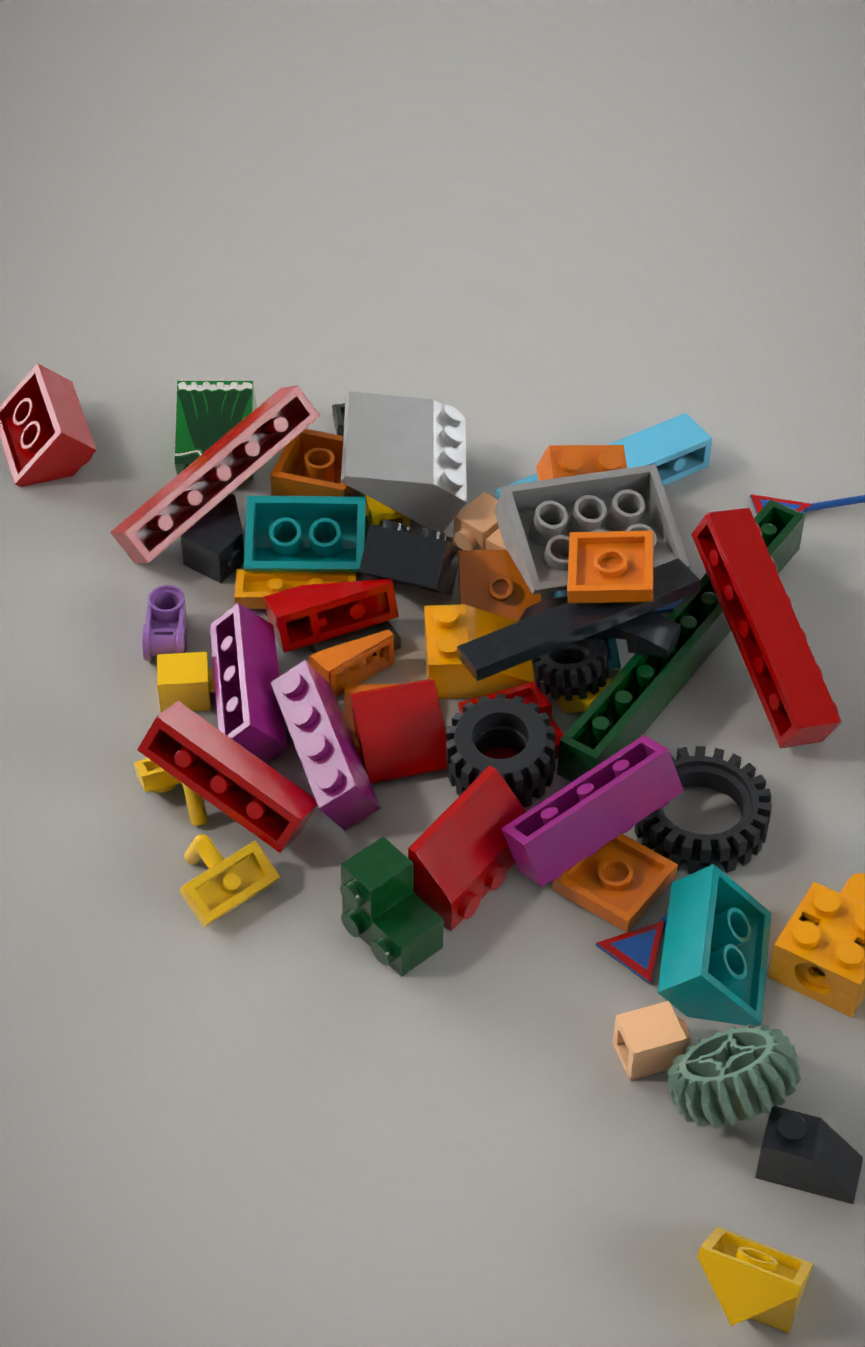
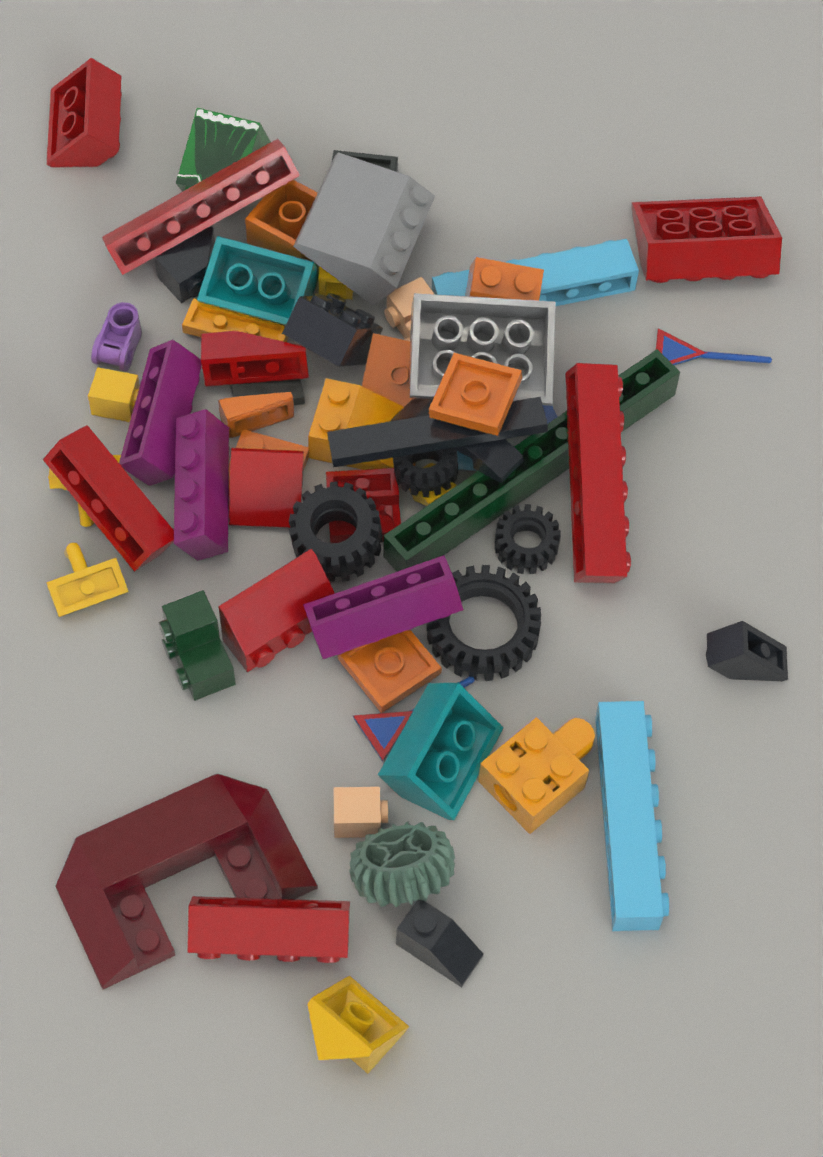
camera: 15 degrees right, 15 degrees up
(382, 1178) = (117, 861): none -> dark red slope
(604, 1192) = (268, 928): none -> red brick
(711, 700) = (527, 521): none -> black tyre
(766, 402) = (706, 239): none -> red slope

